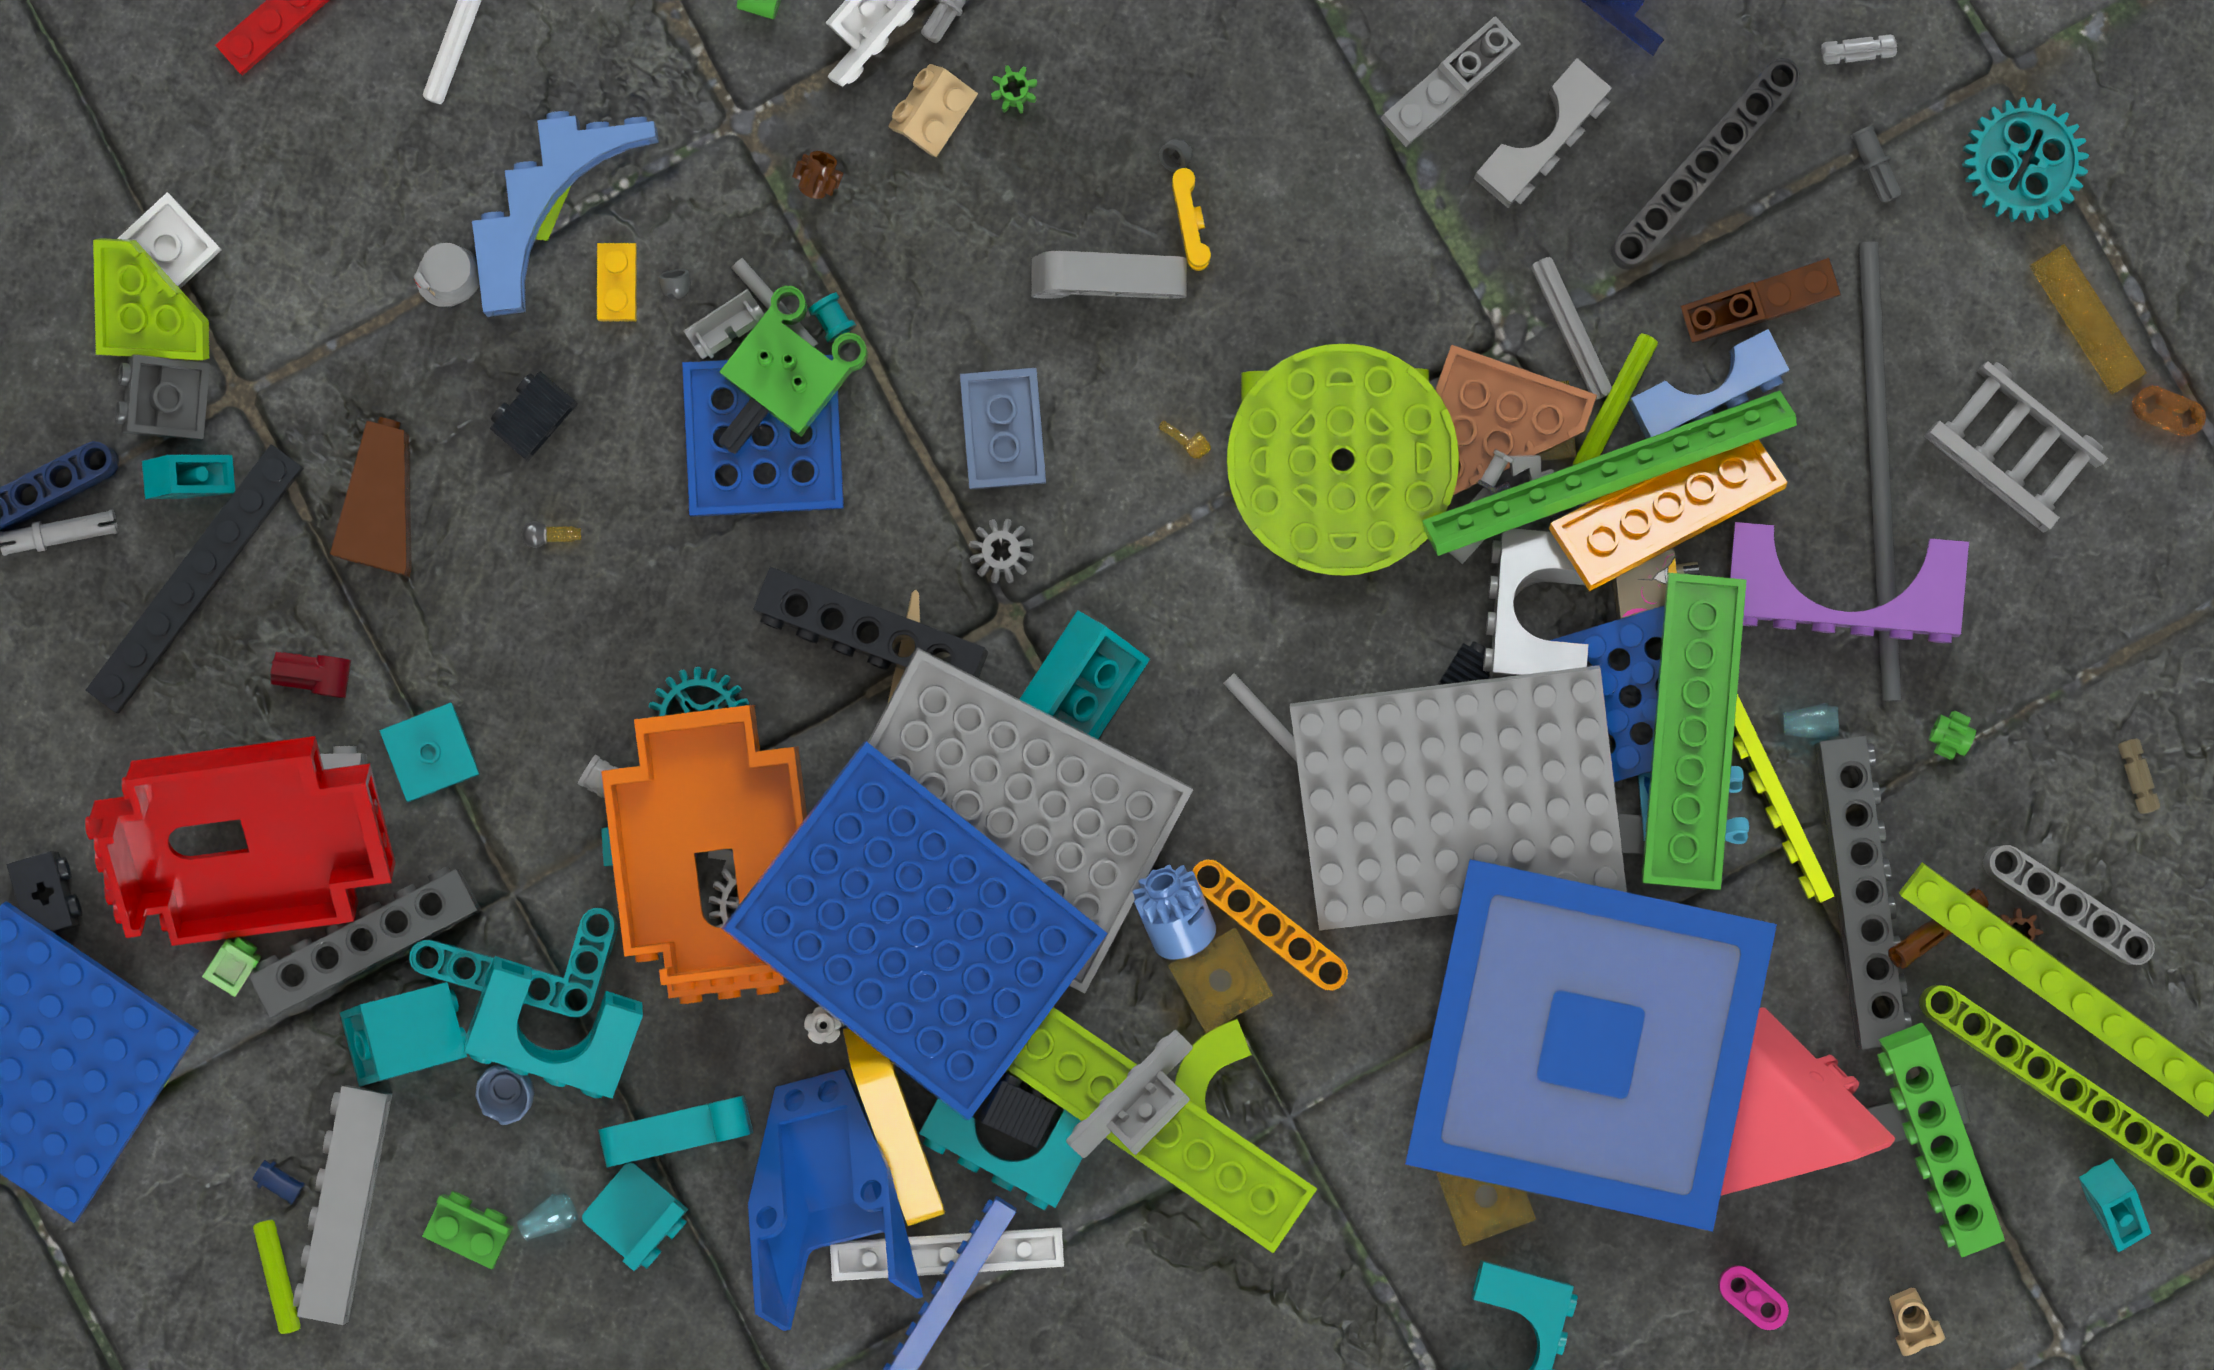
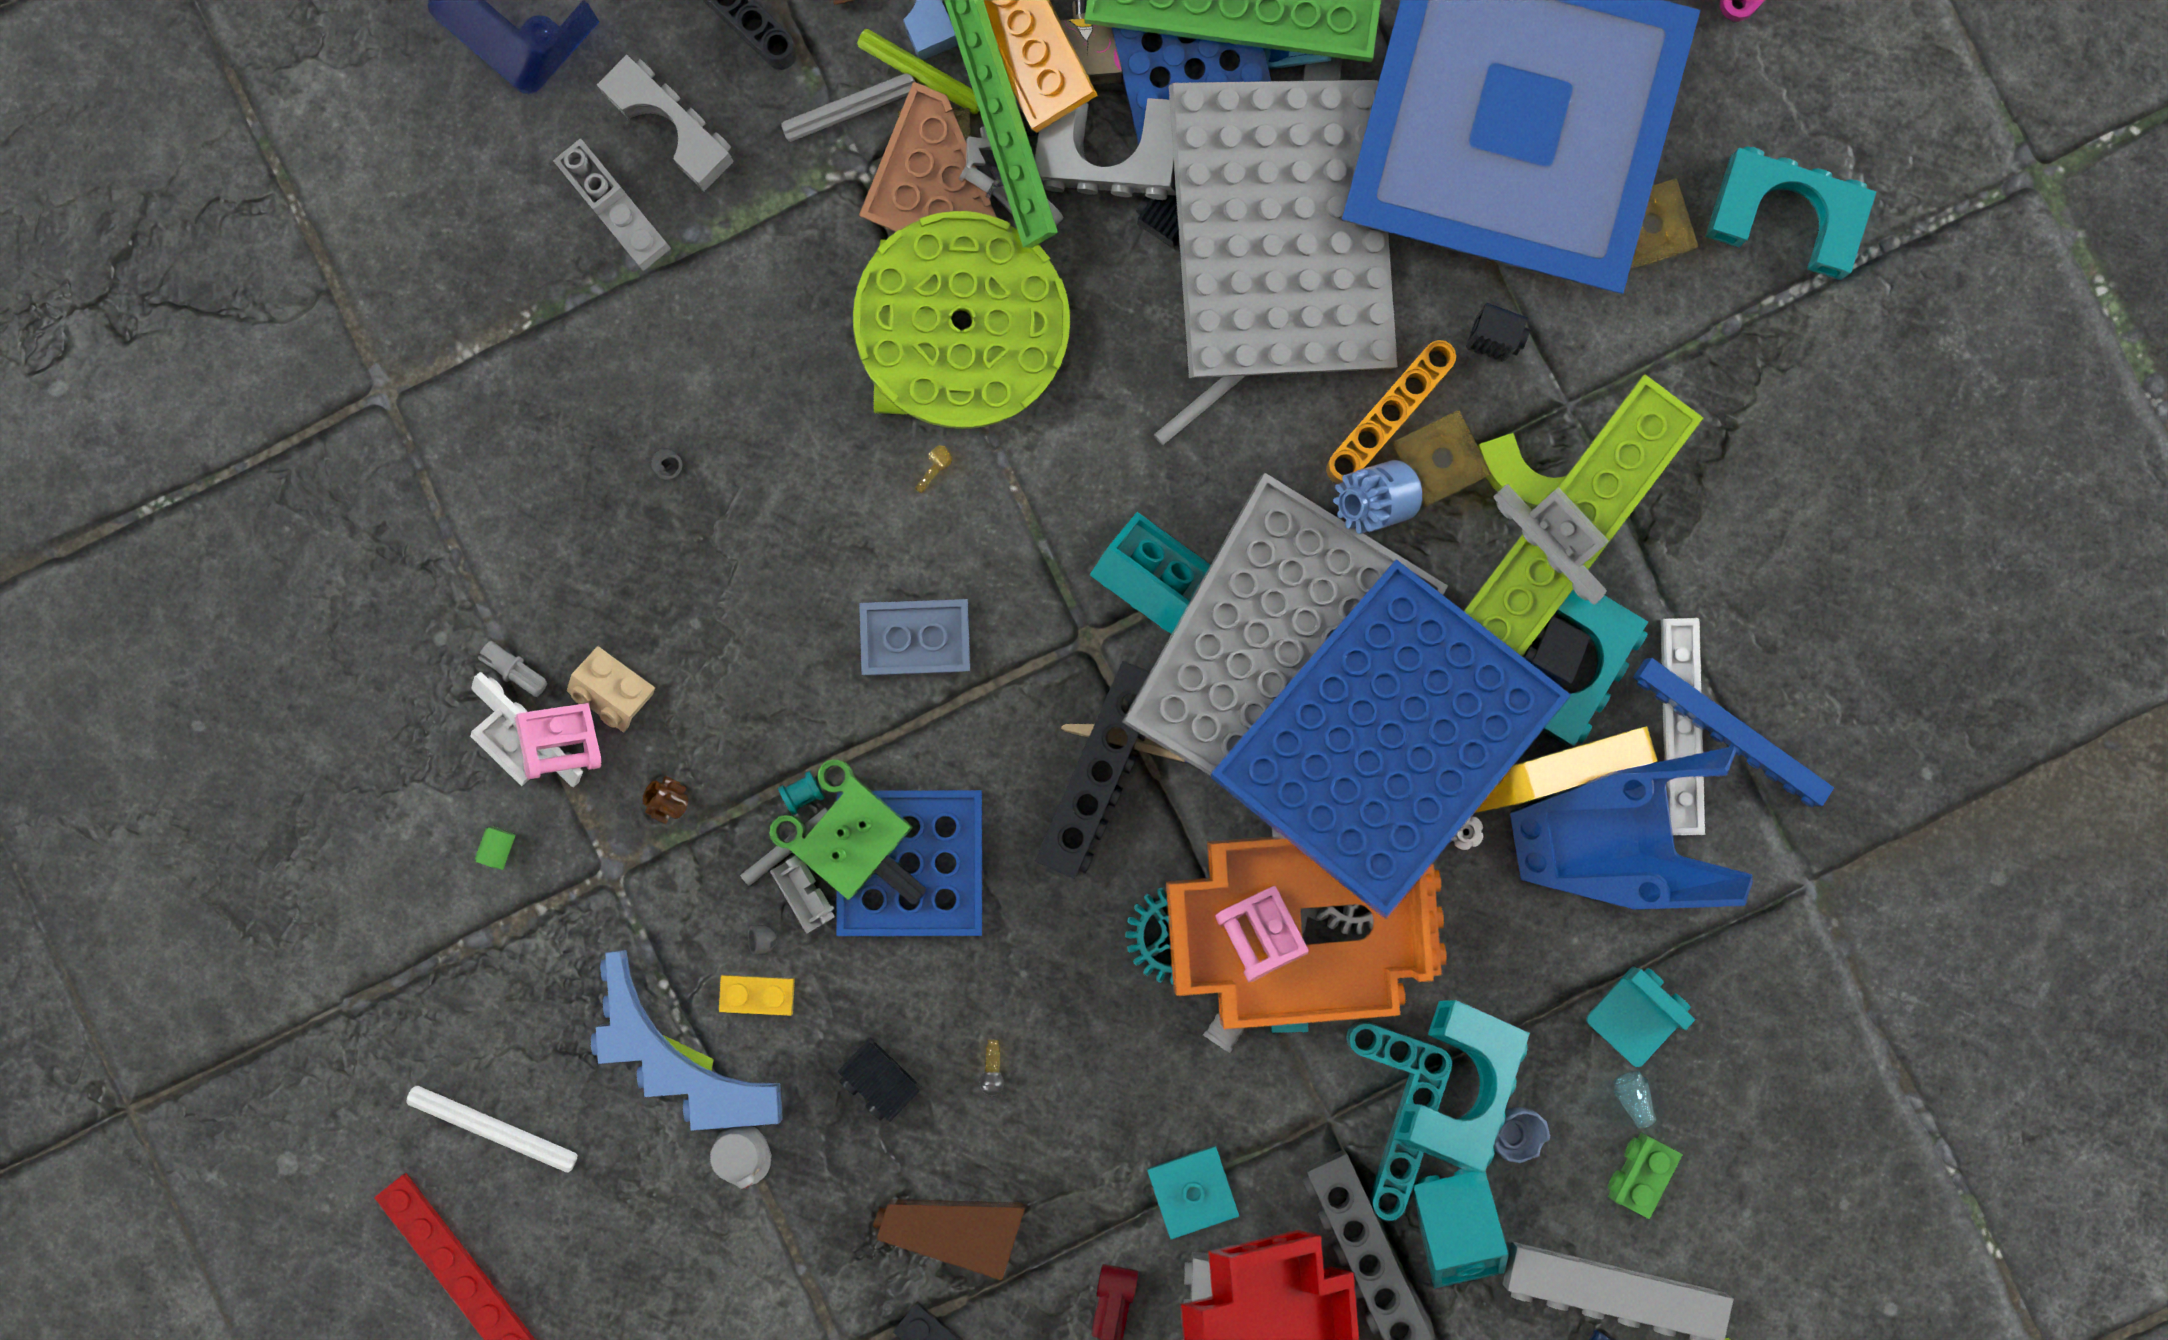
camera: 80 degrees left, 0 degrees up
(675, 1131) = (1560, 973): teal beam -> none
(709, 817) = (1273, 928): none -> bright pink plate
(885, 54) = (554, 729): none -> bright pink plate
(988, 551) = (1029, 656): light grey gear -> none
(1020, 80) = (587, 605): bright green gear -> none
(1108, 274) = (775, 532): light grey beam -> none
(1190, 219) = (728, 453): yellow plate -> none
(1358, 1035) = (1498, 332): none -> black brick

